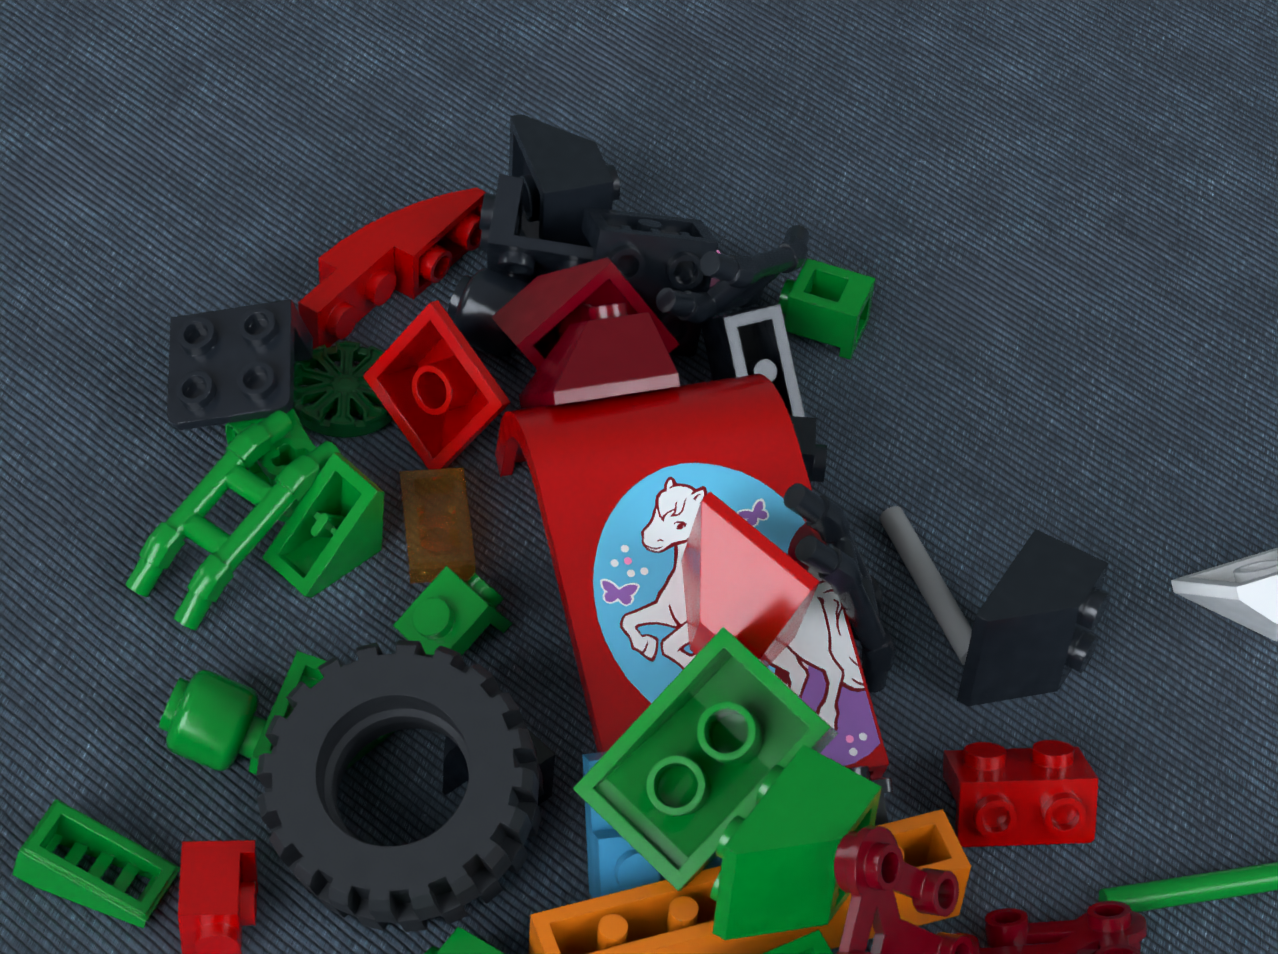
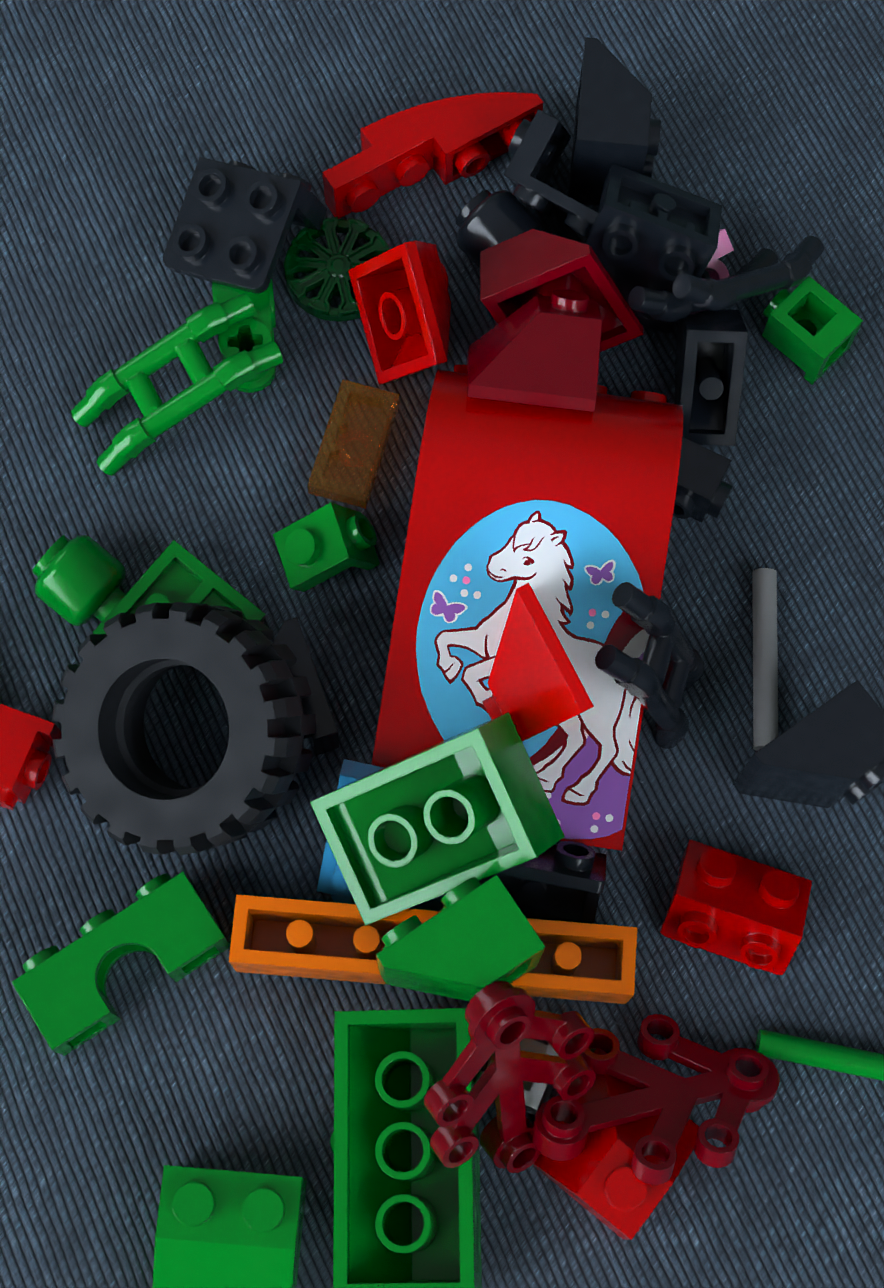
camera: 25 degrees right, 25 degrees up
(330, 529) = (252, 422): green slope -> none

